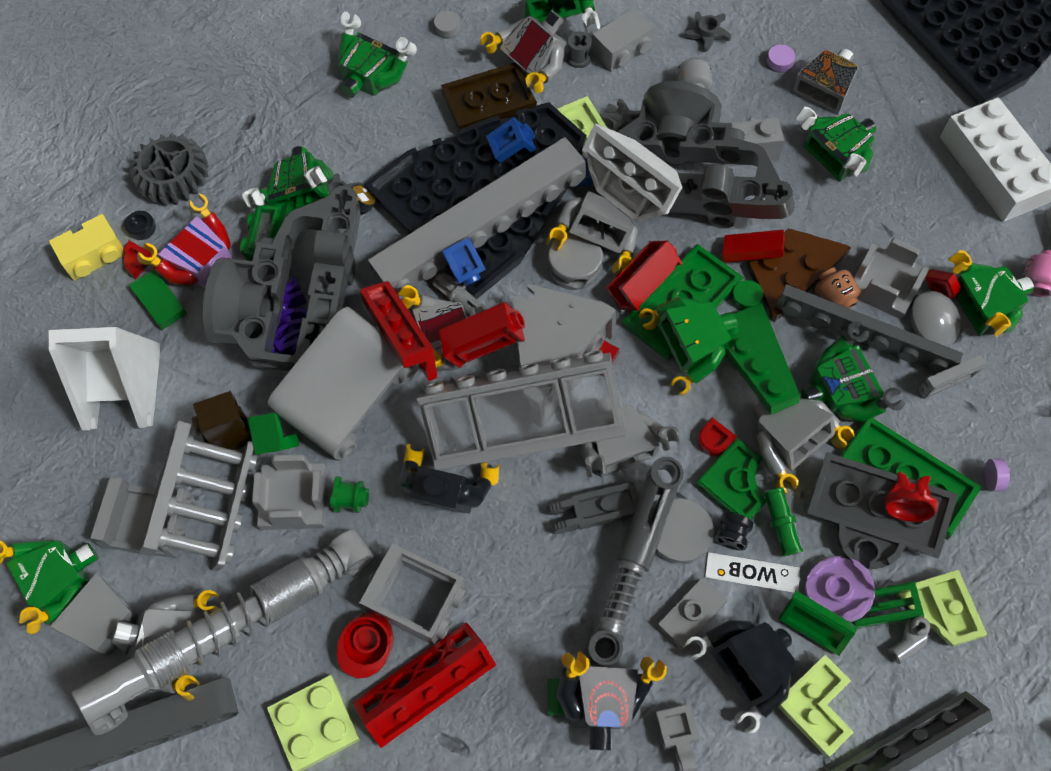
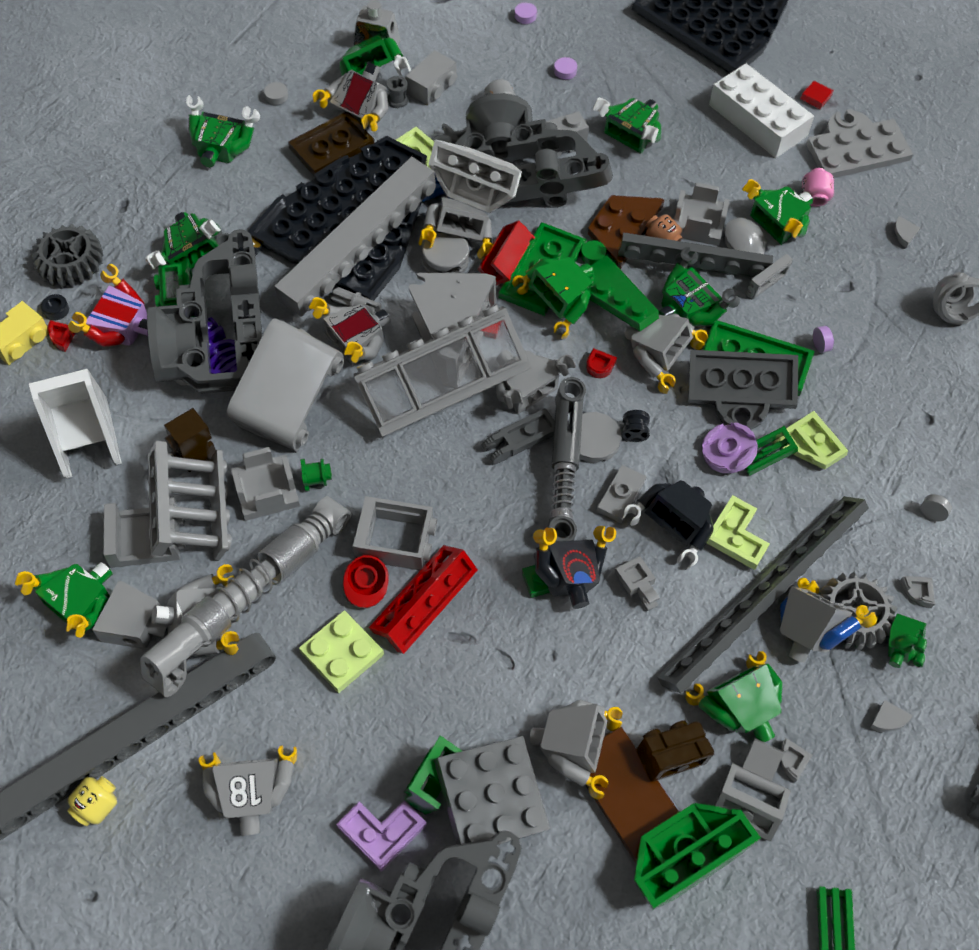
camera: 20 degrees left, 5 degrees down
(158, 299) = (100, 365): green tile -> none
(268, 435) = (233, 439): green panel -> none
(399, 328) = (323, 327): red fence -> none
(444, 488) = (392, 445): black torso -> none
(463, 262) = (356, 270): blue bracket -> none
(482, 334) = (392, 318): red window -> none
(510, 139) = (364, 169): blue bracket -> none
(708, 29) = (499, 57): dark grey animal -> none
(732, 481) = (623, 390): green tile -> none
(752, 572) = (659, 454): white sticker -> none
(754, 246) = (587, 213): red tile -> none
(783, 522) = (672, 410): green pin -> none
(817, 623) = (720, 475): green tile -> none
(827, 79) = (608, 77): torso -> none
(911, 501) = (764, 368): red piece -> none
(913, 639) = (794, 470): light grey arm -> none
(943, 282) = (743, 209): red tile -> none

